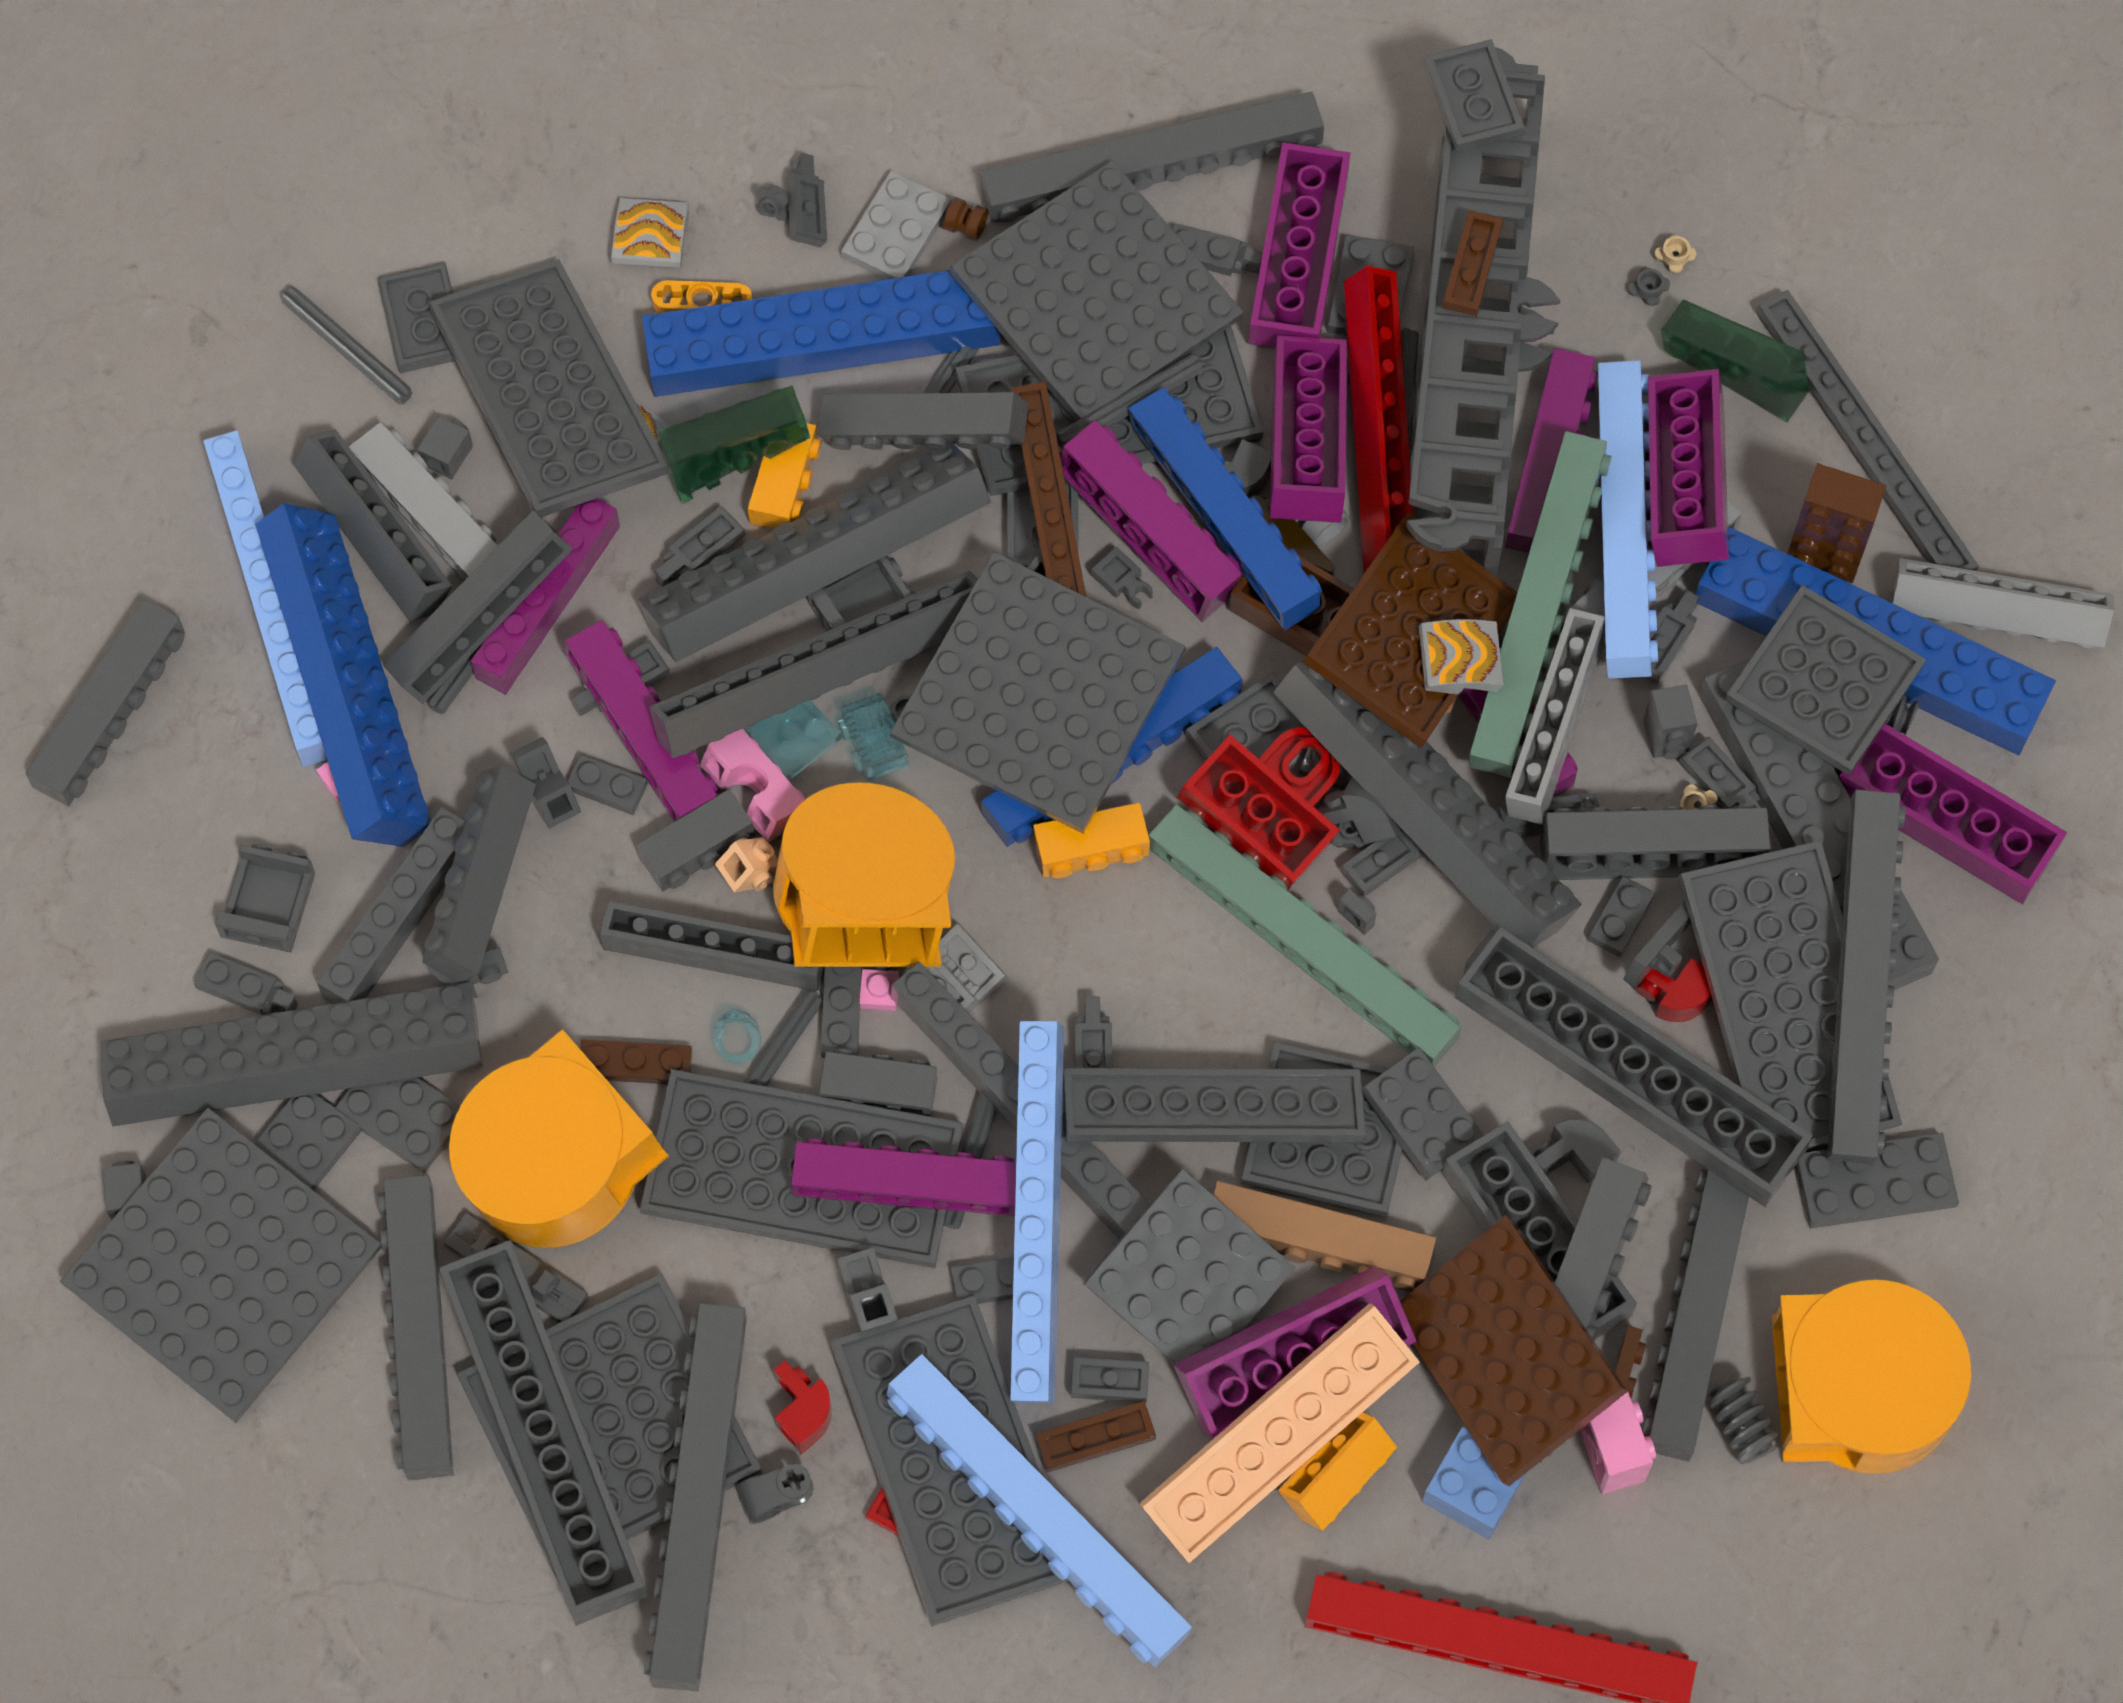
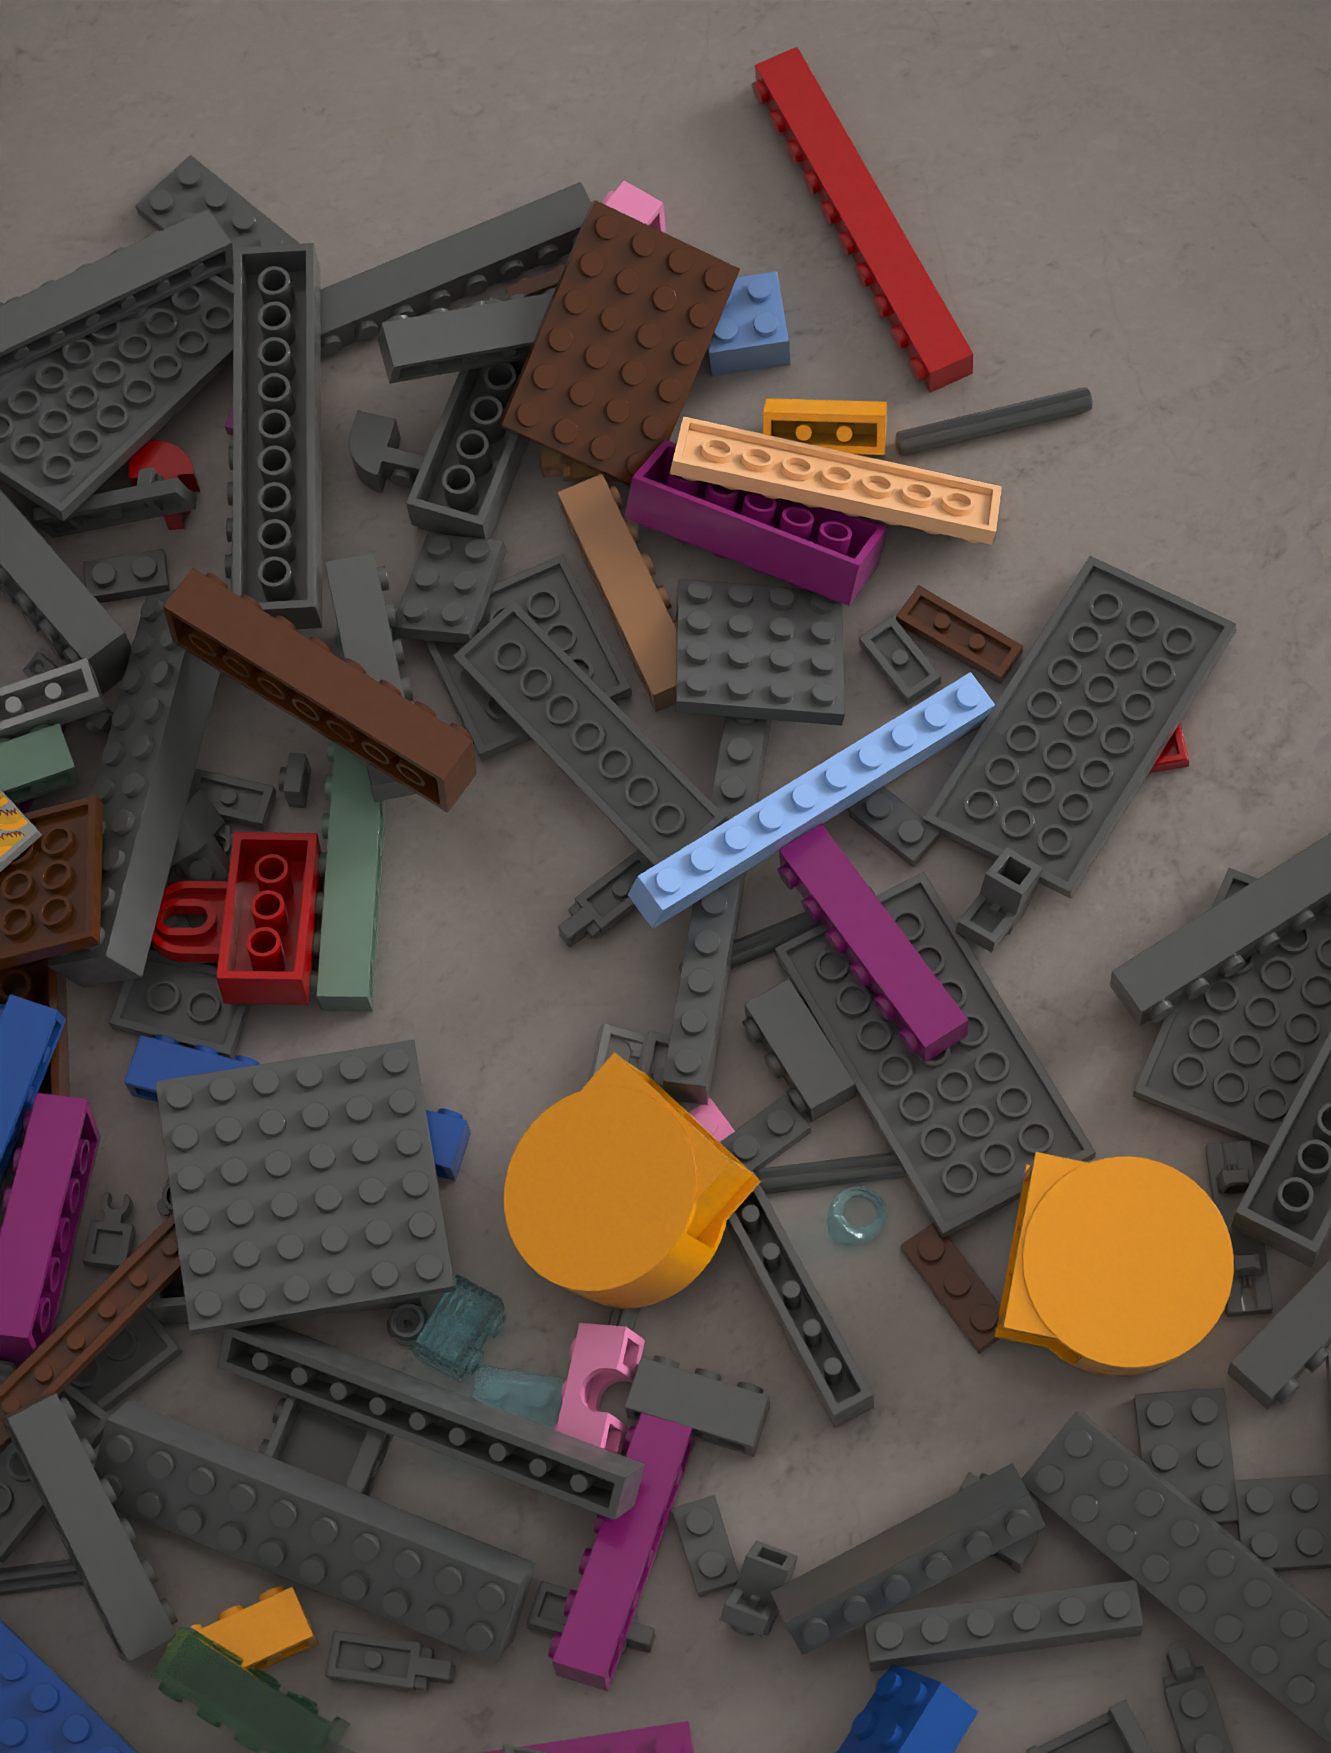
camera: 120 degrees left, 0 degrees up
(748, 864) = (684, 1331): light nougat brick -> none
(770, 1492) = (1239, 844): dark grey piece -> none
(809, 1413) = (1145, 869): red brick -> none
(1038, 1511) = (1069, 618): light blue brick -> none
(1110, 838) = (443, 1070): light orange brick -> none
(1248, 1604) = (994, 420): none -> dark grey axle
(1378, 928) = (321, 689): none -> reddish brown brick
(1382, 999) = (367, 639): none -> dark grey brick
(1743, 1420) = (516, 174): dark grey piece -> none
(1867, 1376) = (408, 105): light orange brick -> none

